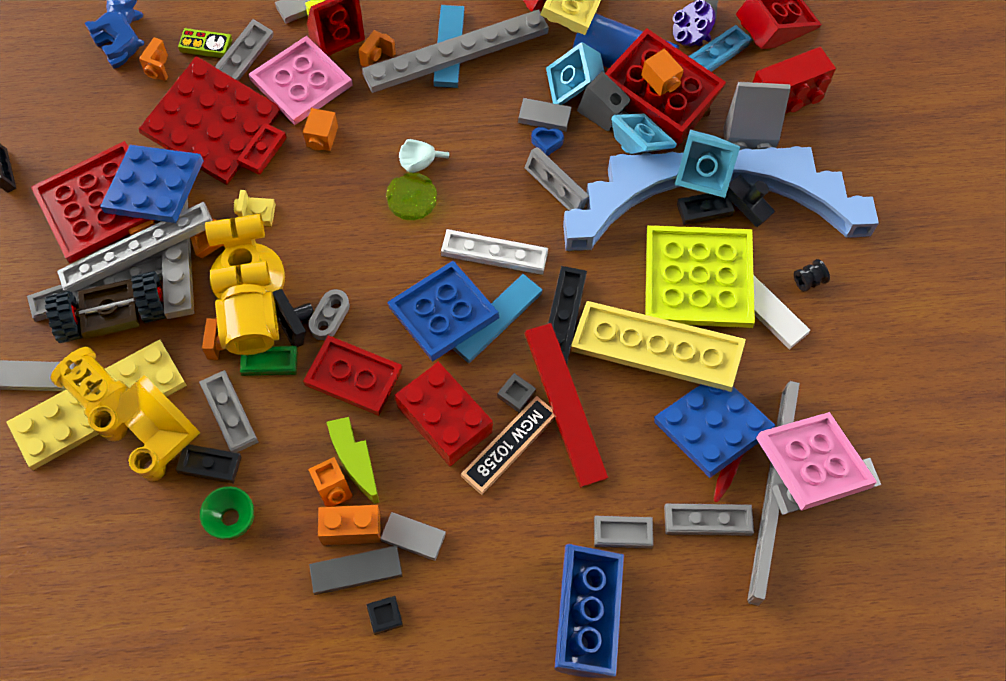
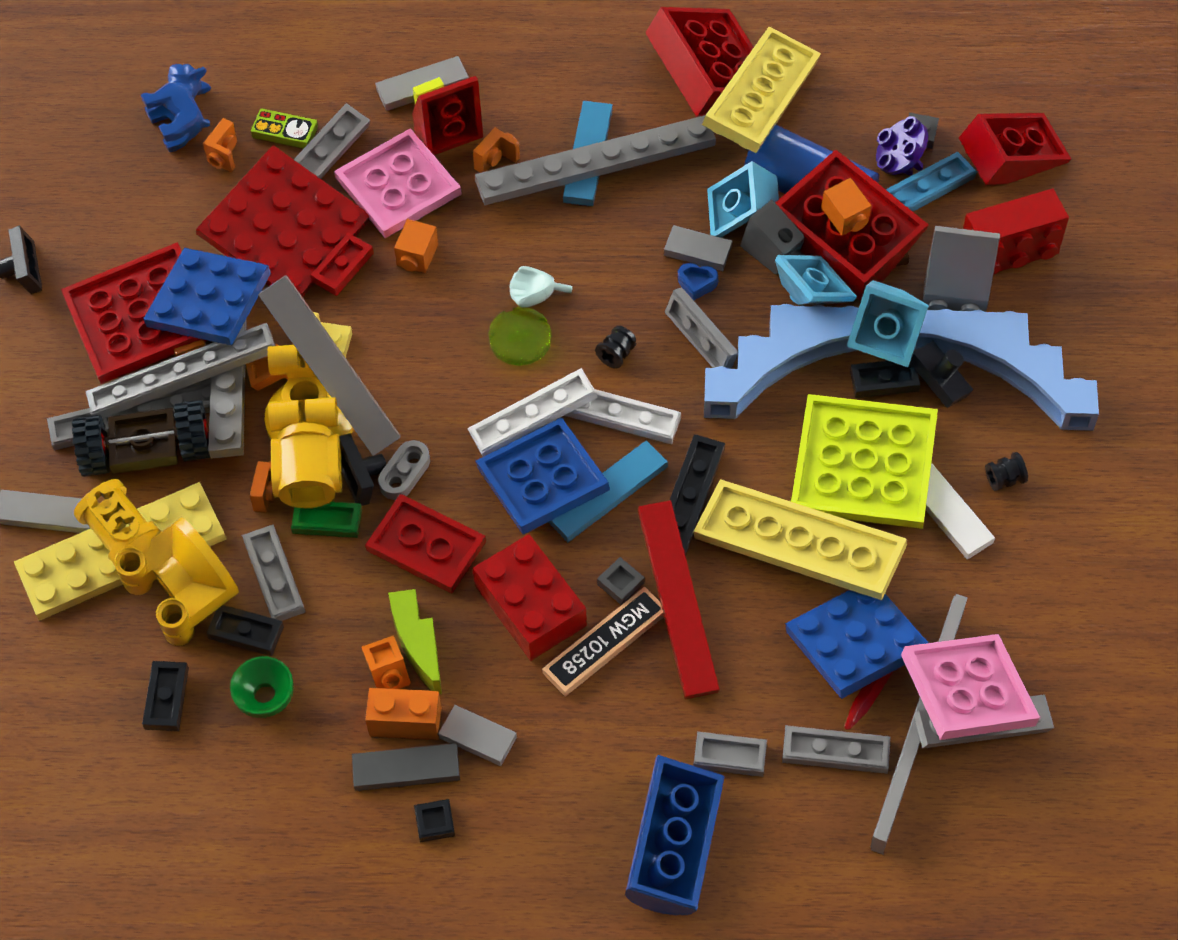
camera: 10 degrees right, 5 degrees down
(145, 528) = (165, 696): none -> black plate
(257, 232) = (329, 365): none -> light grey tile
(429, 258) = (532, 412): none -> white tile
(490, 199) = (616, 346): none -> black bush

